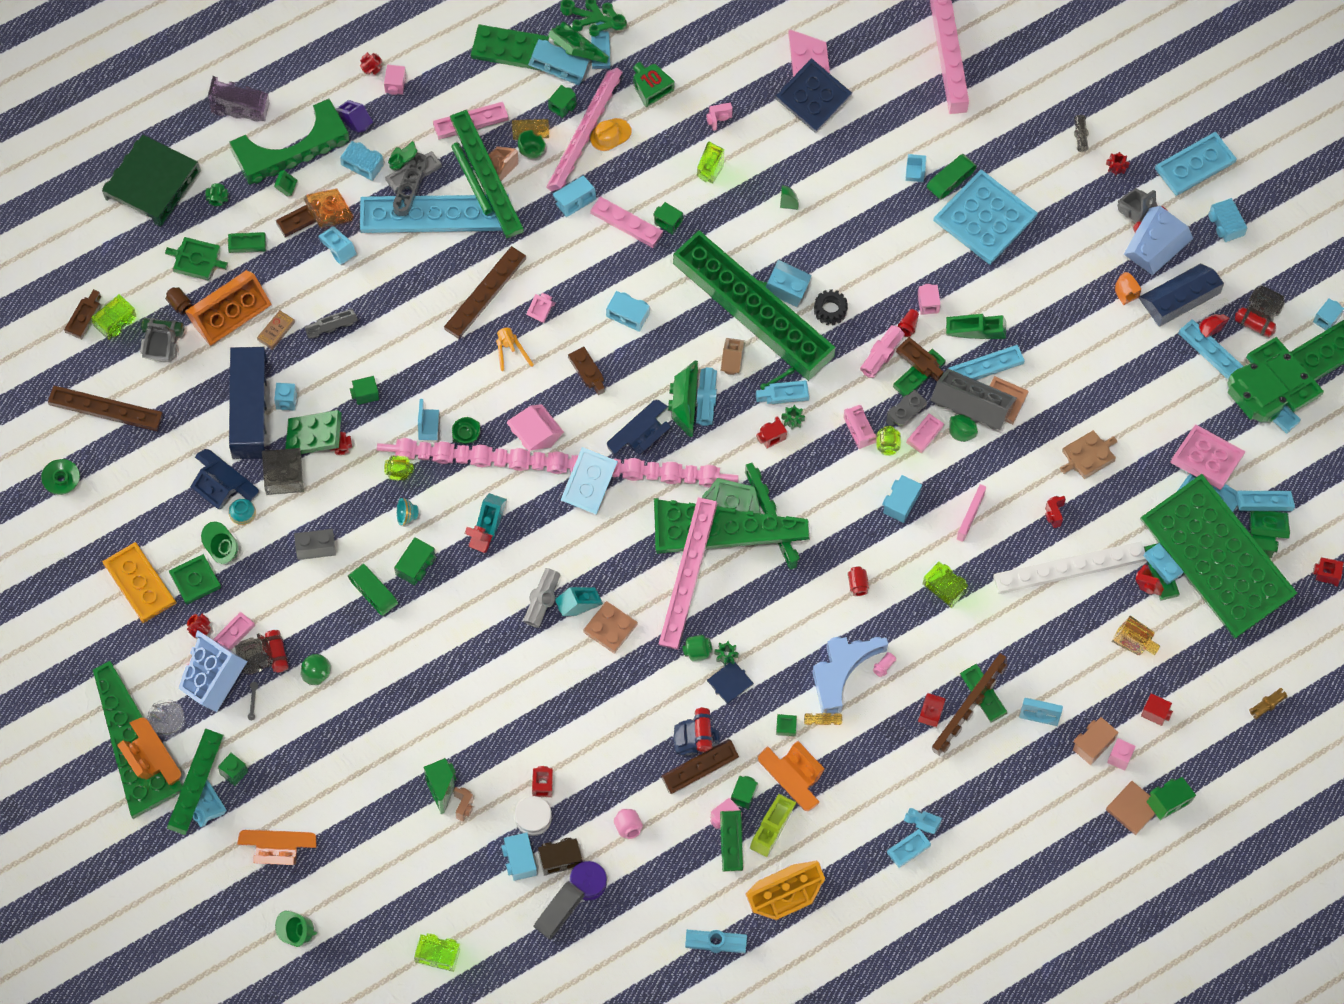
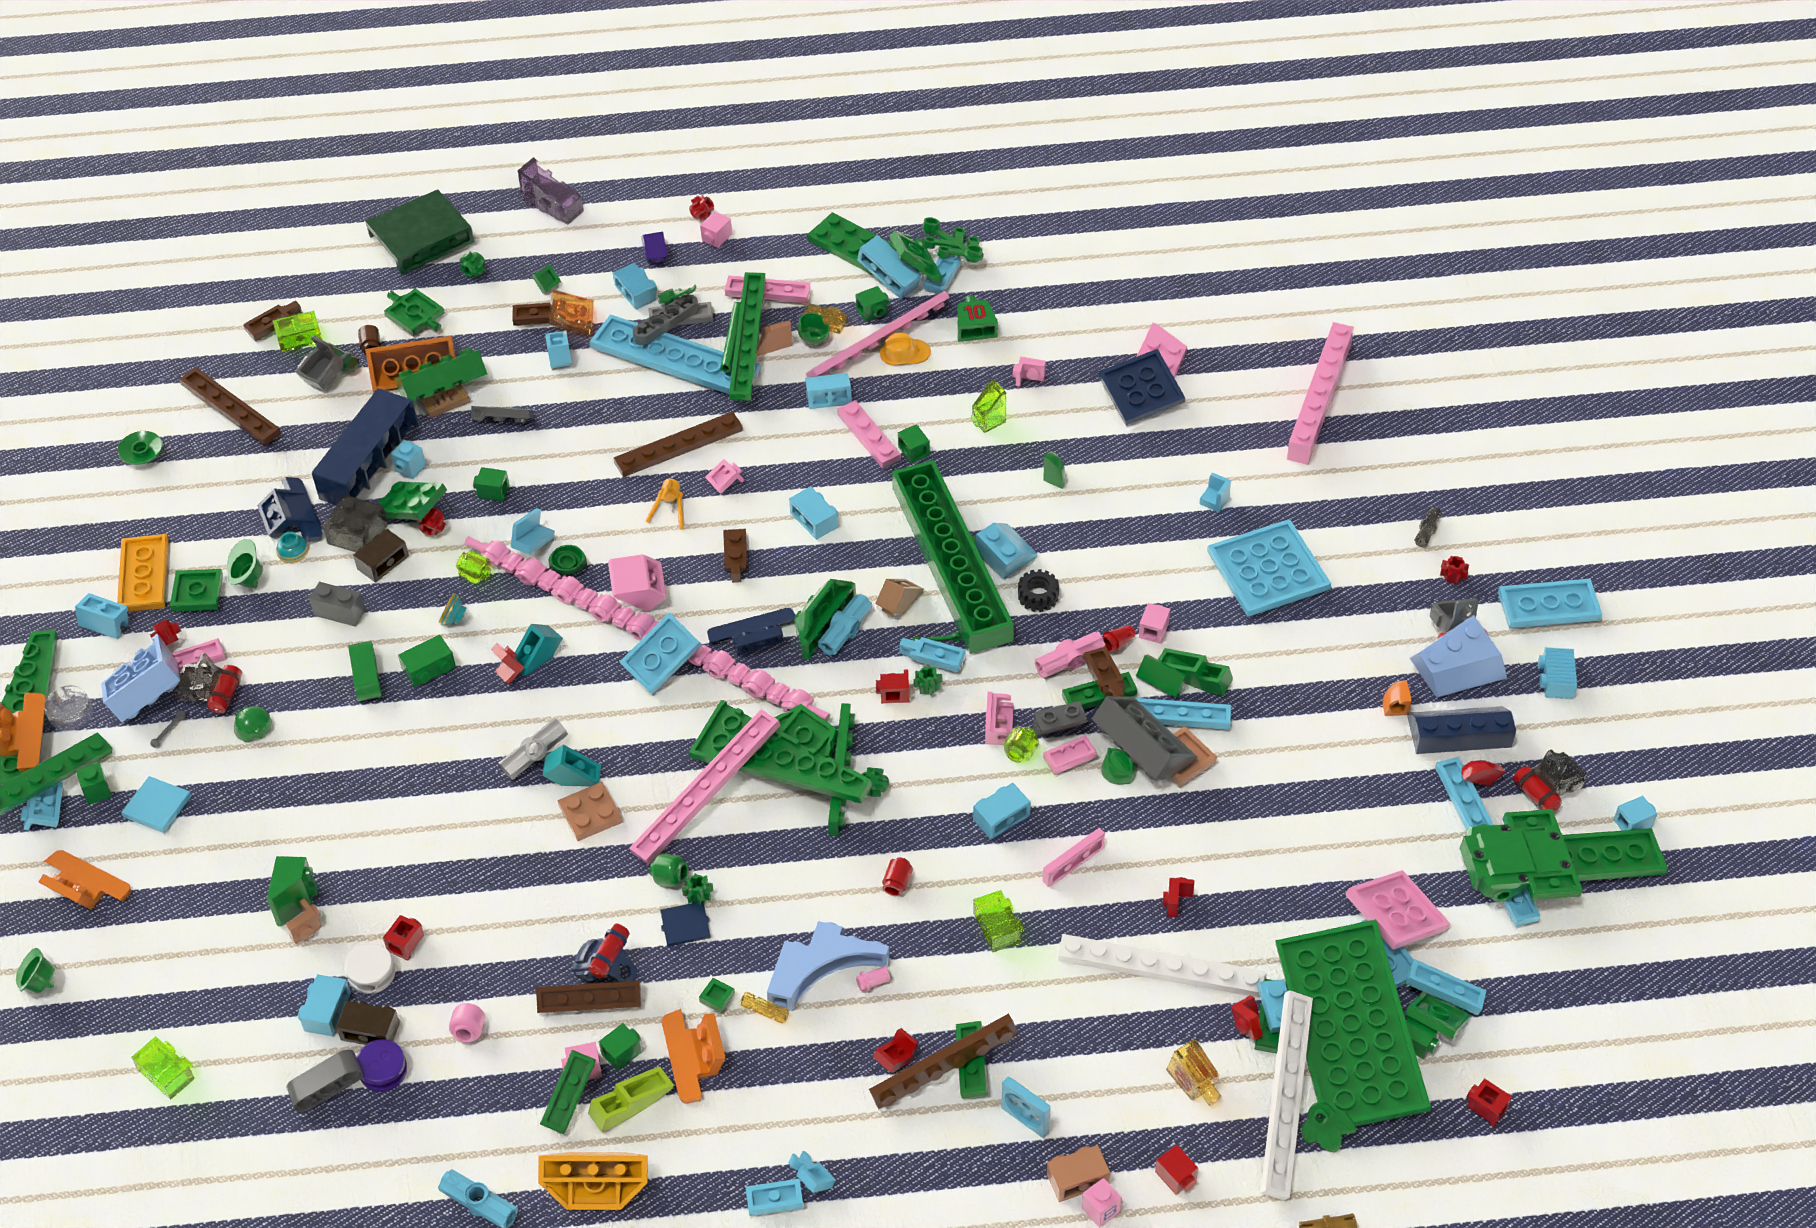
camera: 30 degrees right, 15 degrees down
(137, 632) = (101, 615): none -> medium azure hinge
(247, 242) = (472, 315): green plate -> none
(261, 162) = (614, 251): green arch -> none
(263, 313) = (441, 375): none -> green wedge
(287, 763) = (156, 804): none -> medium azure tile
(319, 488) = (381, 555): none -> dark brown brick
(802, 512) = (879, 781): none -> green gear
(951, 176) = (1252, 515): green beam -> none
(956, 341) = (1161, 675): none -> green tile
(1088, 454) = (1253, 852): medium nougat plate -> none
(1202, 625) = (1286, 1096): none -> white plate
(1239, 637) = (1327, 1130): none -> green plate

